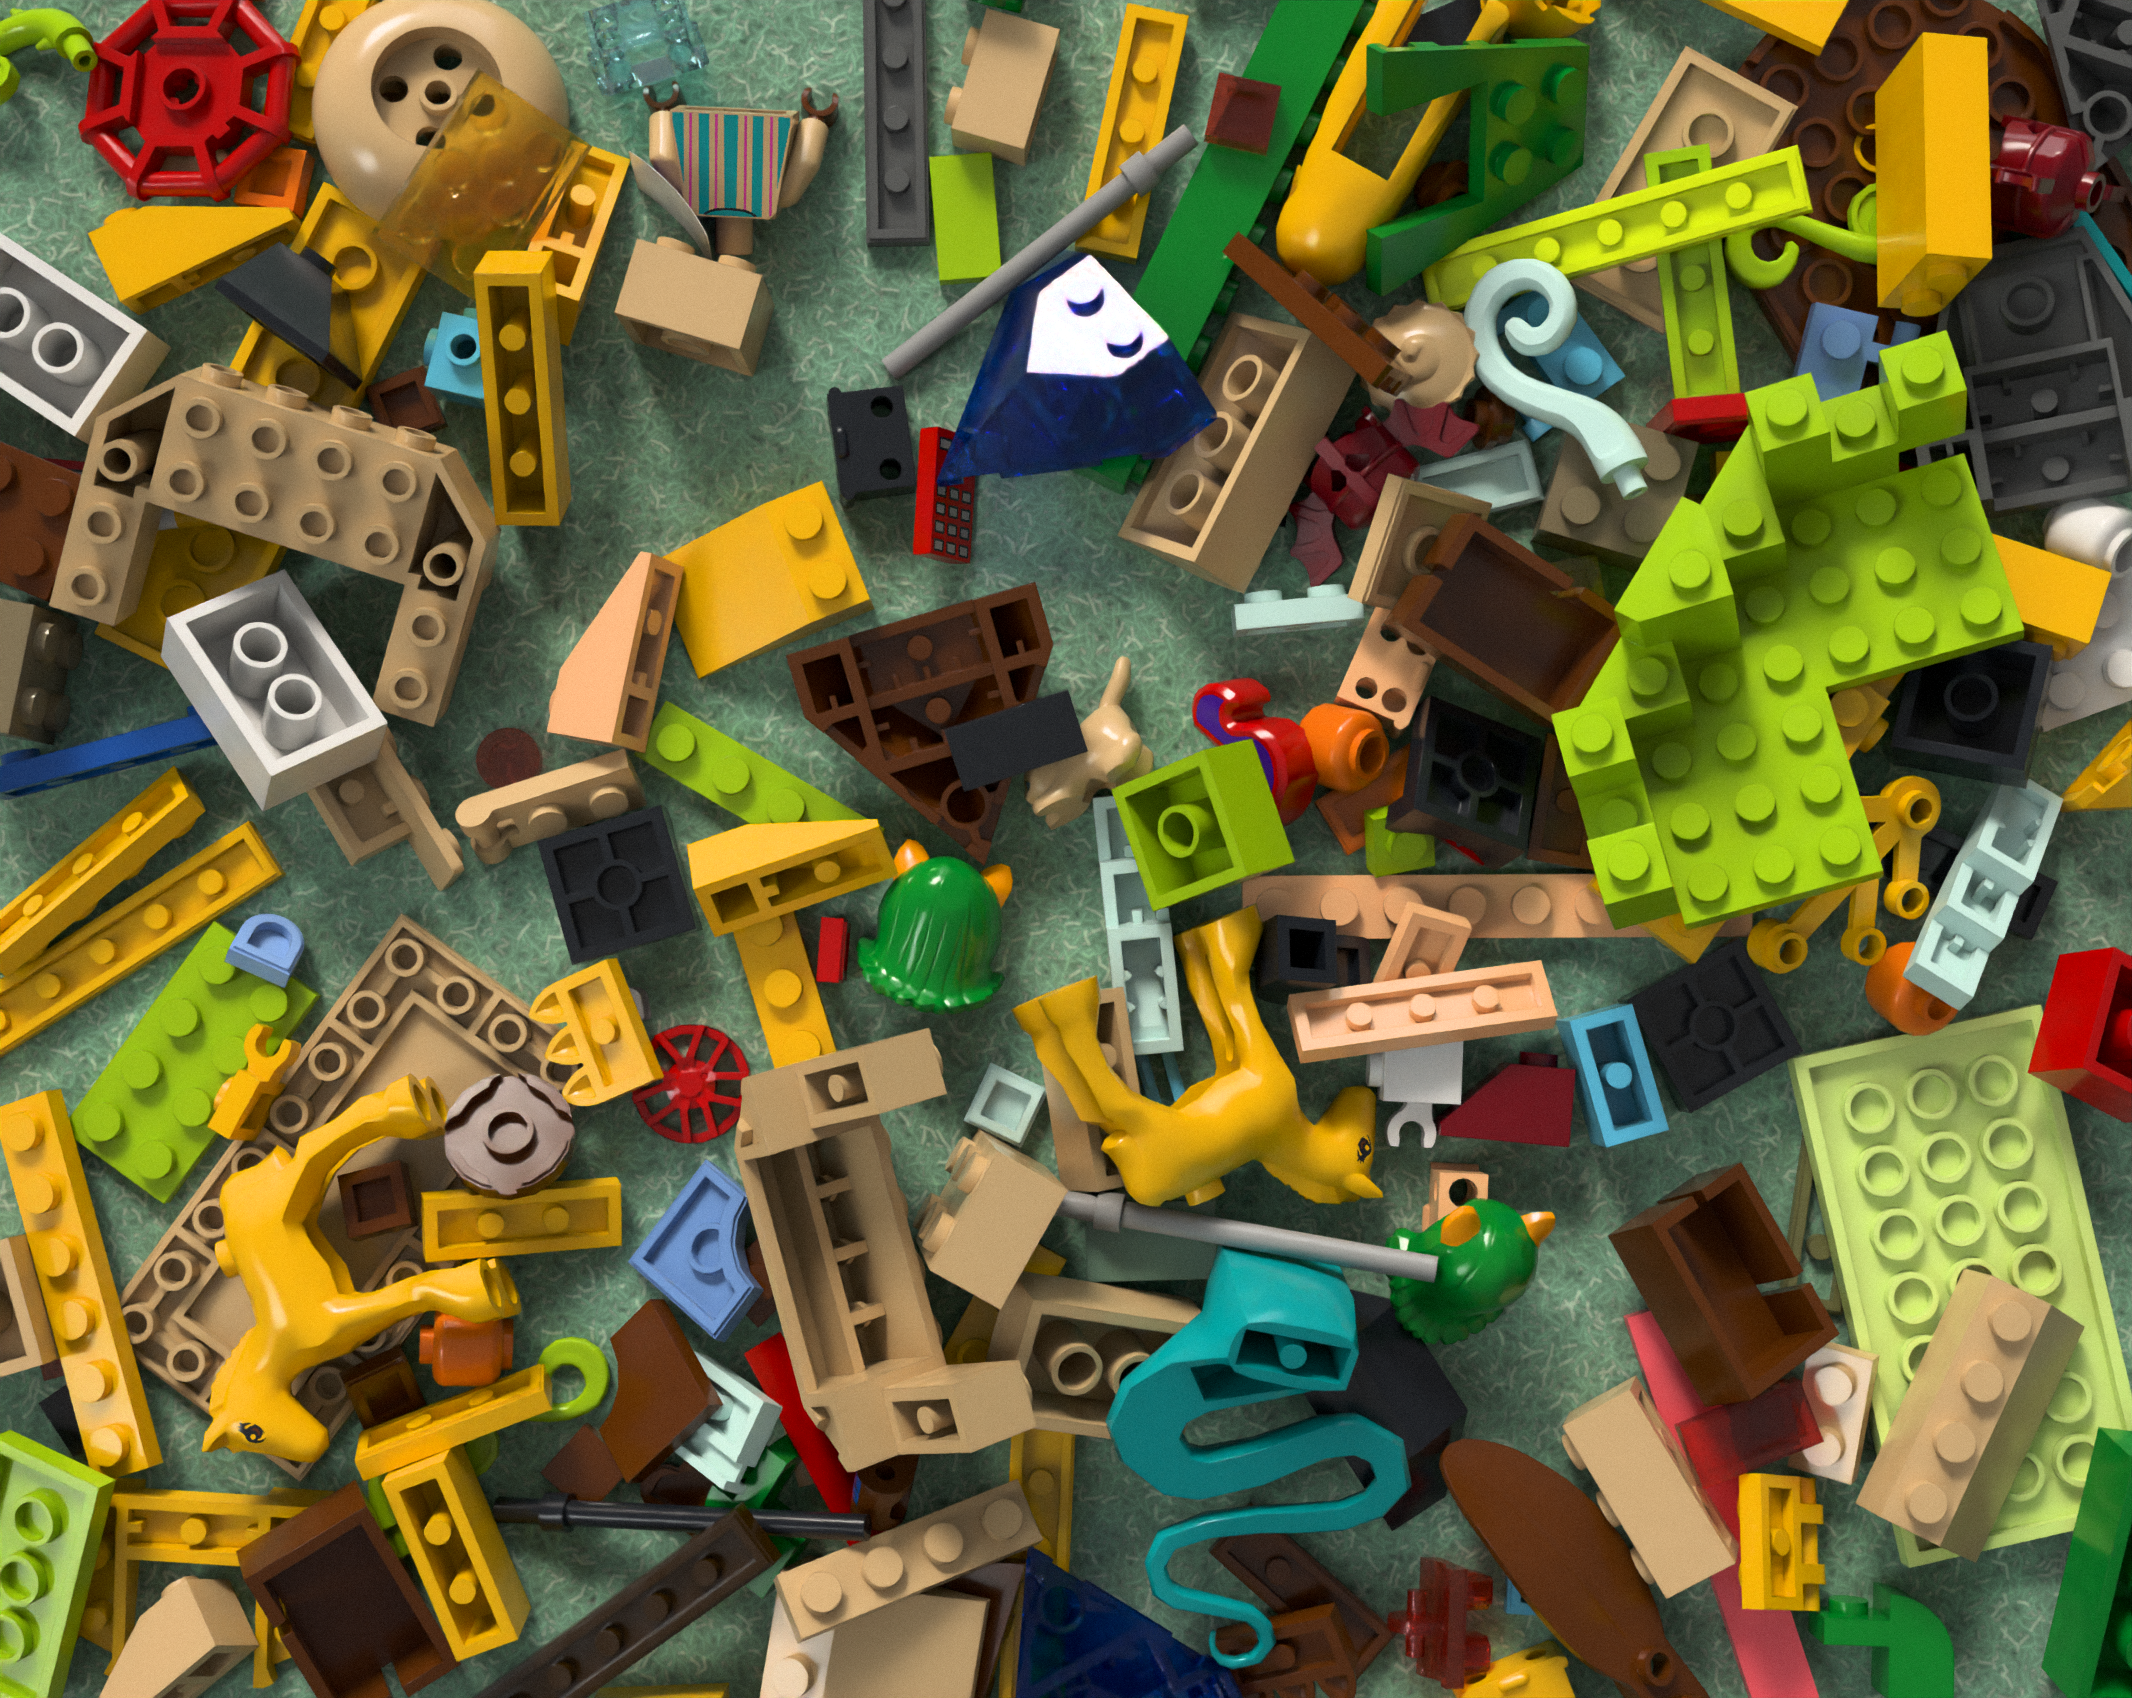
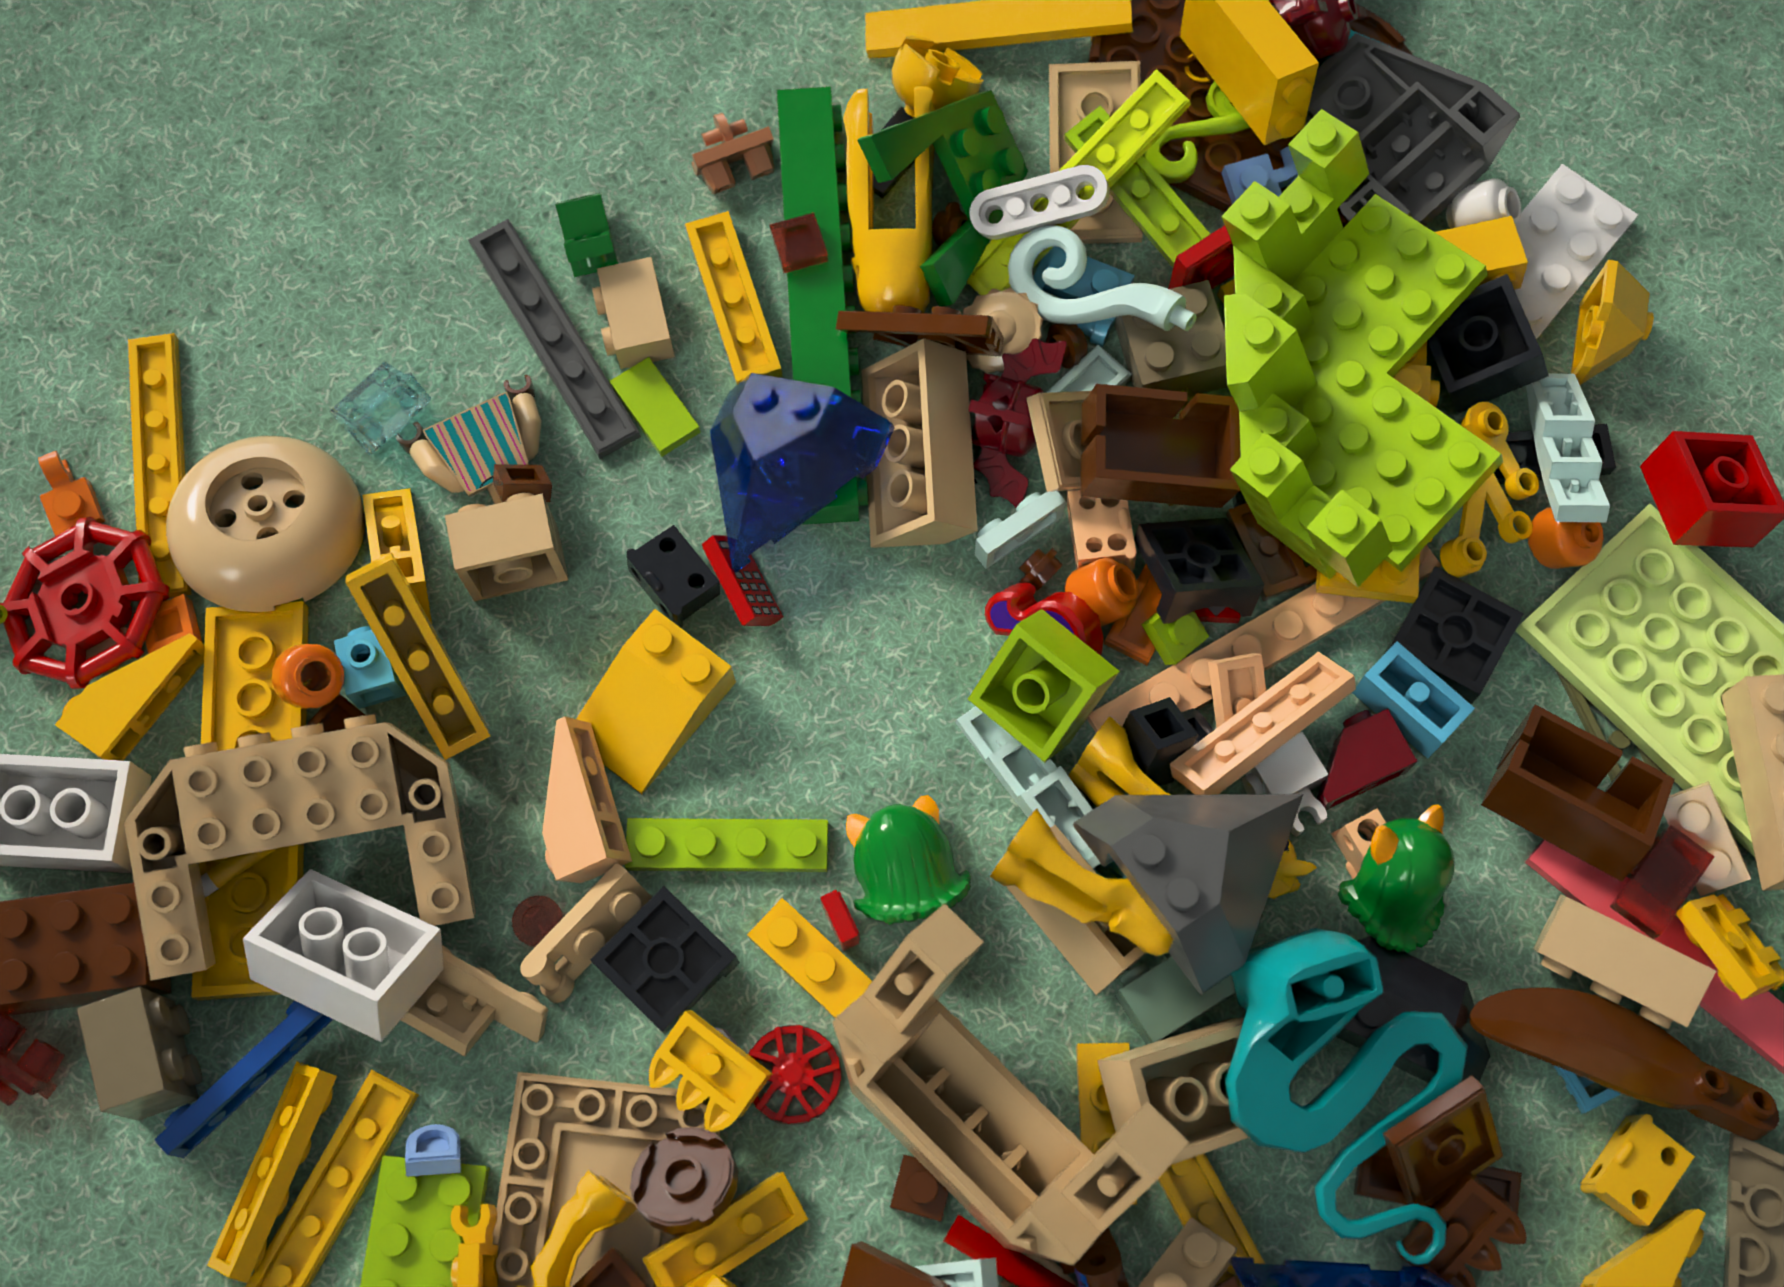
camera: 25 degrees left, 15 degrees down
(300, 306) = (229, 691): black slope -> none
(392, 339) = (309, 663): none -> orange head
(481, 183) = (317, 537): clear yellow plate -> none
(661, 191) = (449, 489): white sticker -> none
(700, 1253) = (867, 1188): medium blue tile -> none
(753, 237) = (517, 479): none -> reddish brown plate
(783, 868) = (776, 878): yellow slope -> none
(905, 682) = (817, 712): reddish brown wedge -> none
(987, 1216) = (1060, 1028): tan brick -> none
(1005, 1105) = (1021, 960): light aqua tile -> none
(1015, 740) = (884, 701): black tile -> none
(1112, 758) = (944, 690): tan animal -> none
(1112, 1211) = (1143, 980): light grey bar -> none
(1138, 175) = (753, 317): light grey bar -> none
(1239, 1132) = (1198, 867): none -> dark grey wedge
(1291, 675) = (1040, 567): none -> reddish brown plate
(1324, 1564) = (1443, 1143): none -> reddish brown tile
(1437, 1622) = (1547, 1145): clear red hips -> none
(1533, 213) = (1019, 197): none -> white plate

